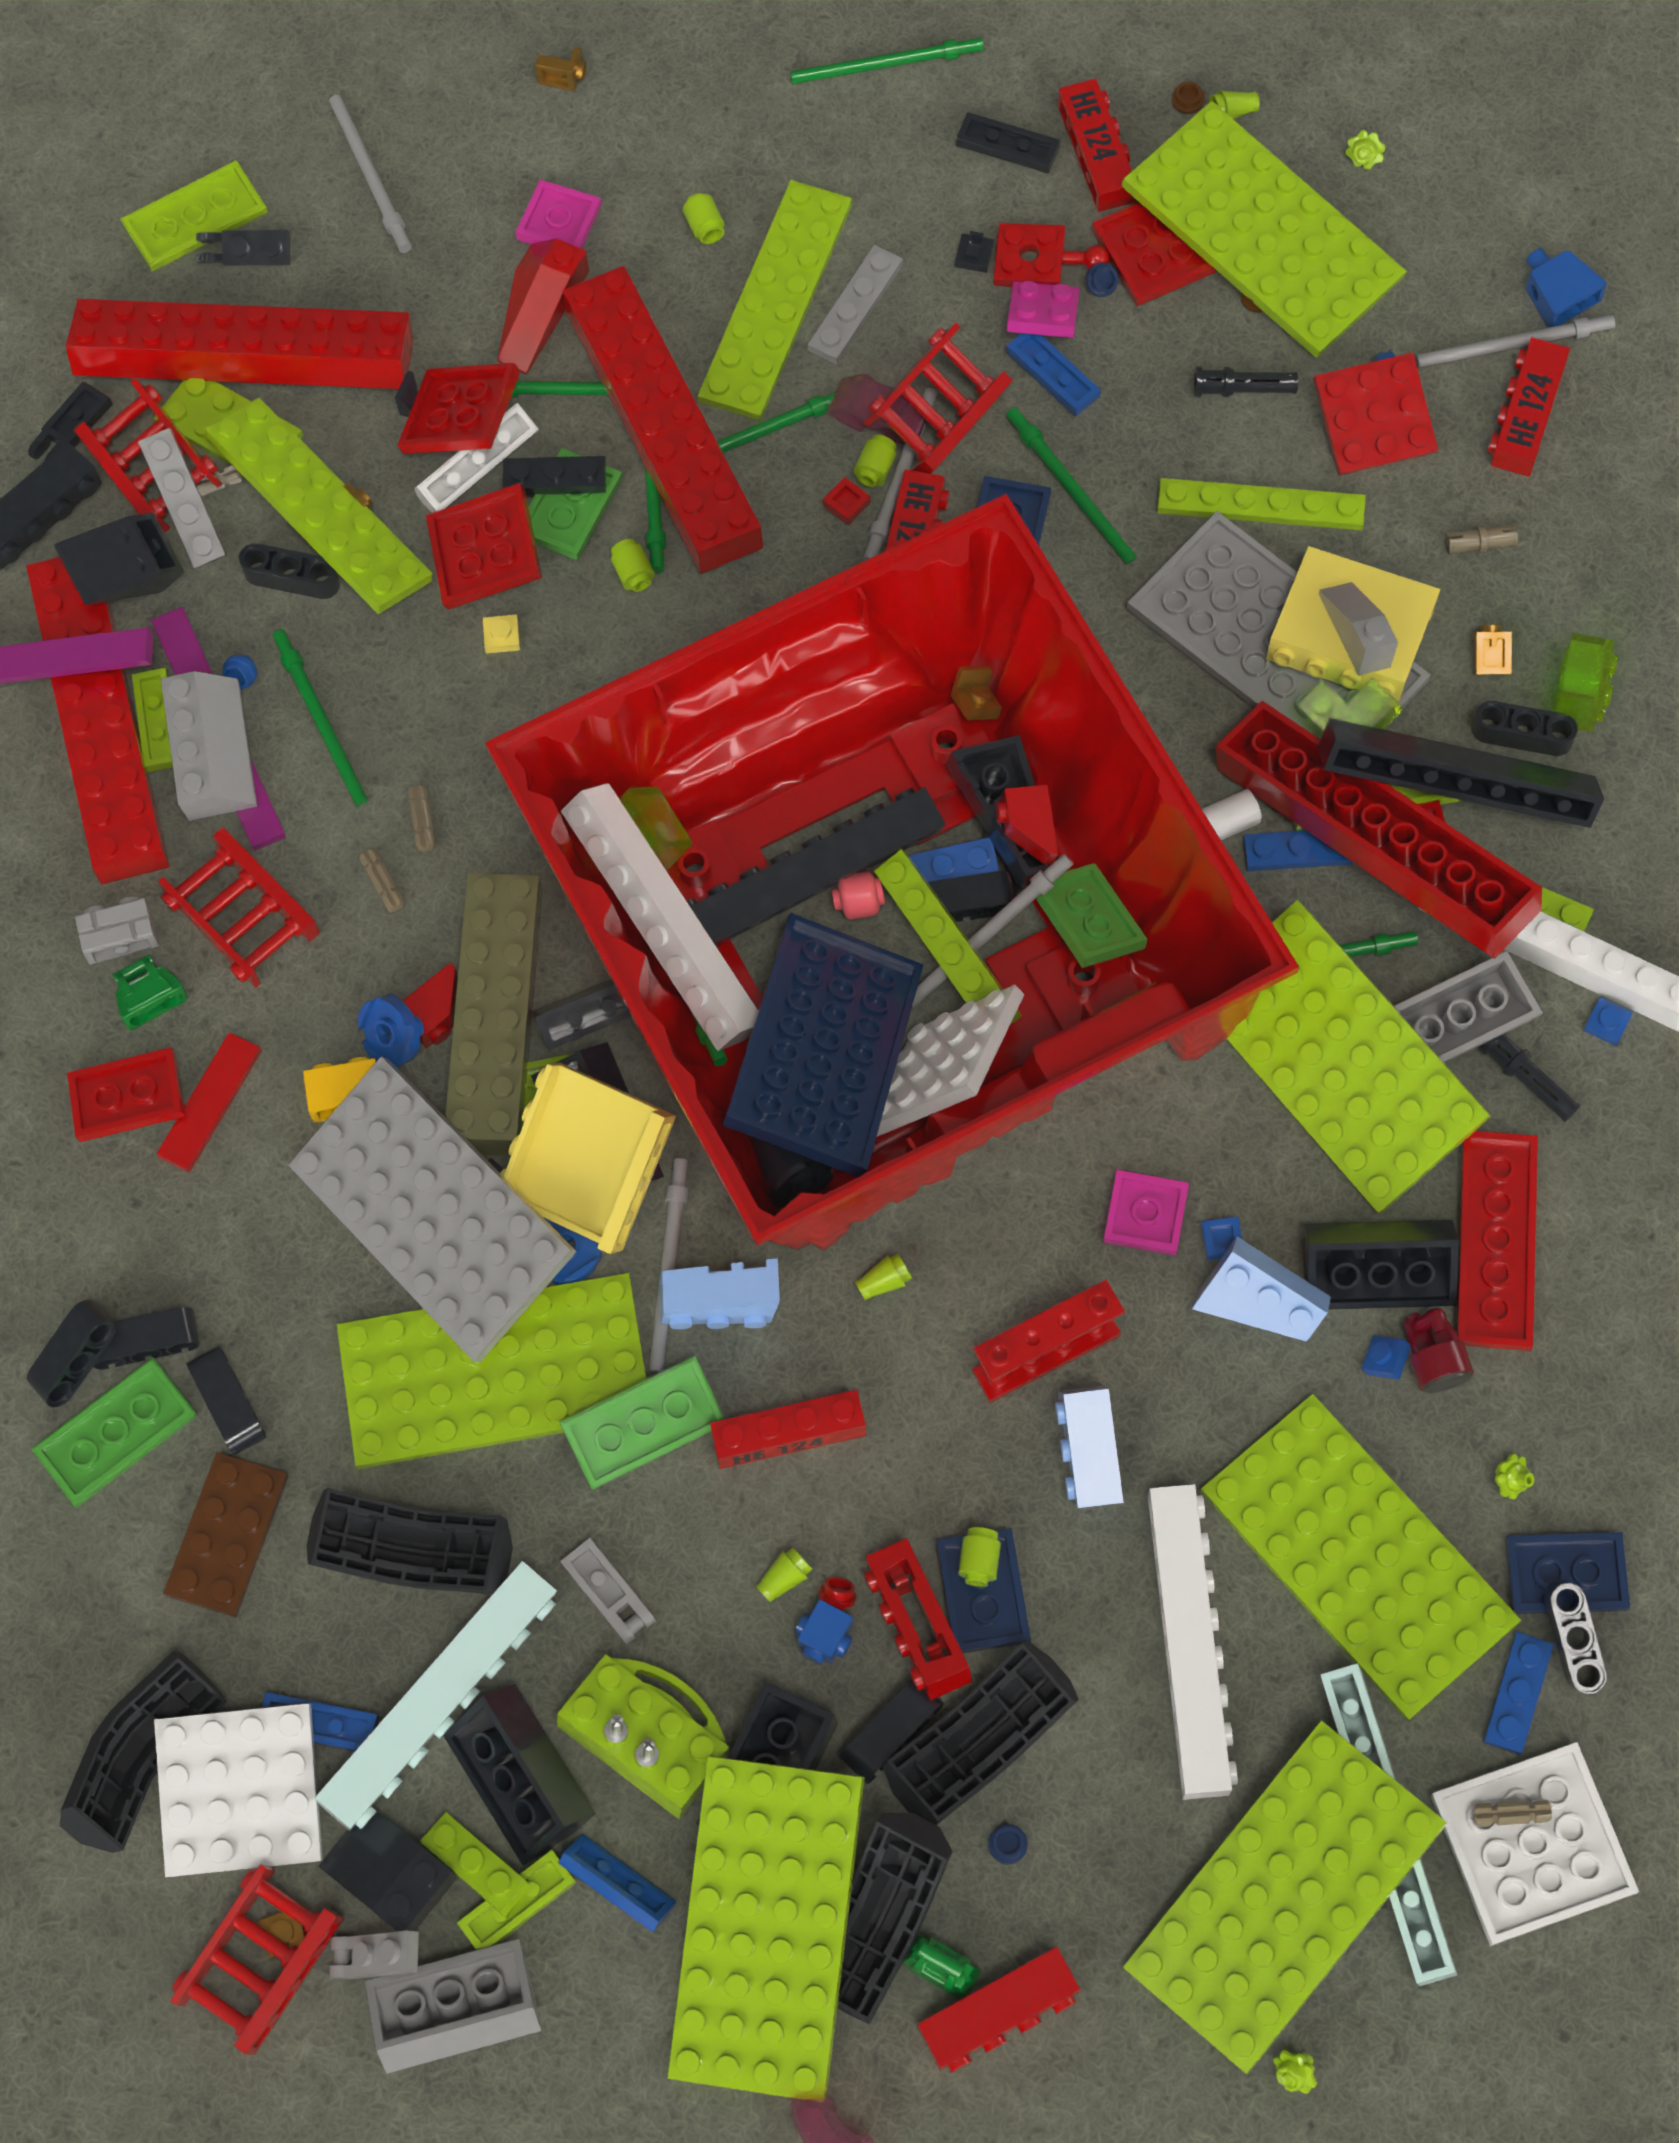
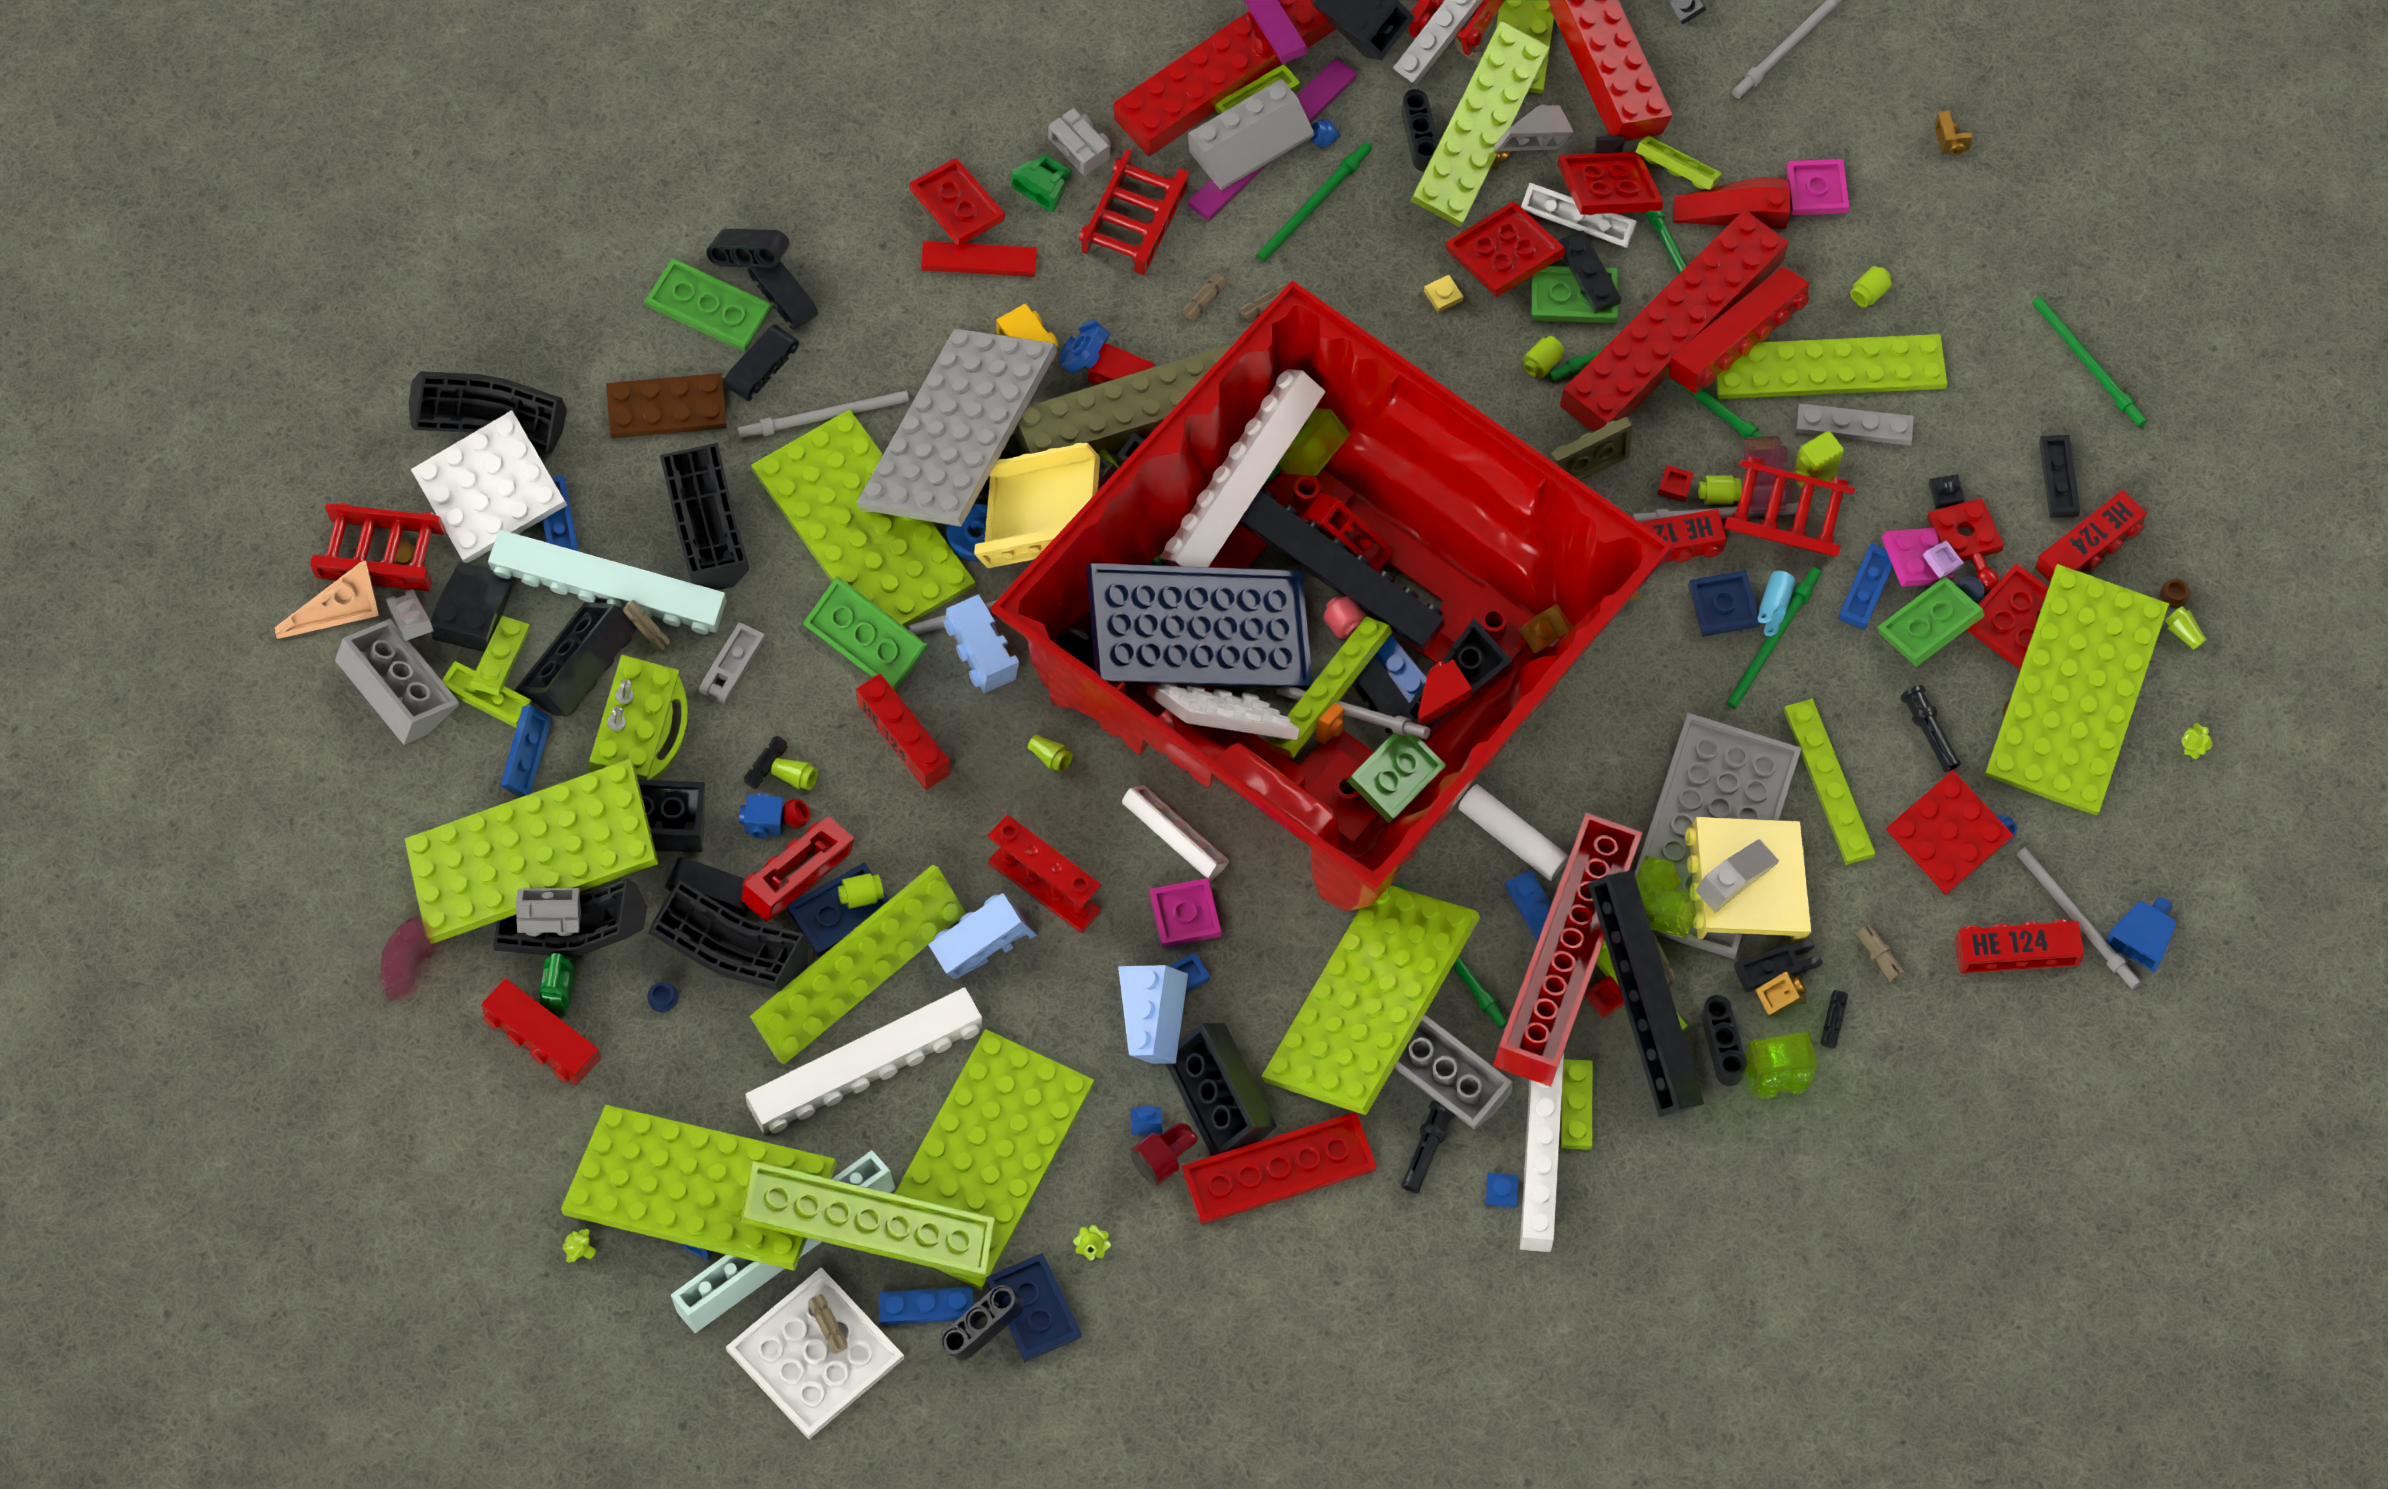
camera: 60 degrees right, 5 degrees down
(312, 2031) = (340, 603): none -> light nougat wing
(313, 1426) = (768, 426): none -> light grey bar
(355, 451) = (1539, 130): none -> light grey slope
(462, 336) = (1678, 163): none -> lime plate
(517, 1671) = (646, 625): none -> dark tan axle
(701, 360) = (1739, 330): none -> red brick
(753, 1603) = (764, 762): none -> black axle
(764, 841) = (1343, 524): none -> red slope
(777, 554) = (1595, 450): none -> olive plate
(865, 1934) = (548, 911): none -> light grey brick
(893, 347) = (1819, 458): none -> lime brick
(994, 958) = (1330, 724): none -> orange plate
(1033, 462) = (1776, 601): none -> medium azure piece
(1041, 1182) = (1175, 831): none -> white brick
(1062, 284) = (1943, 559): none -> lavender tile
(1070, 1599) = (857, 964): none -> lime plate
(1126, 327) = (1930, 621): none -> bright green plate
(1417, 1716) = (867, 1220): none -> lime plate
(1455, 645) = (1770, 964): none -> black hinge
(1537, 614) = (1834, 1019): none -> black axle

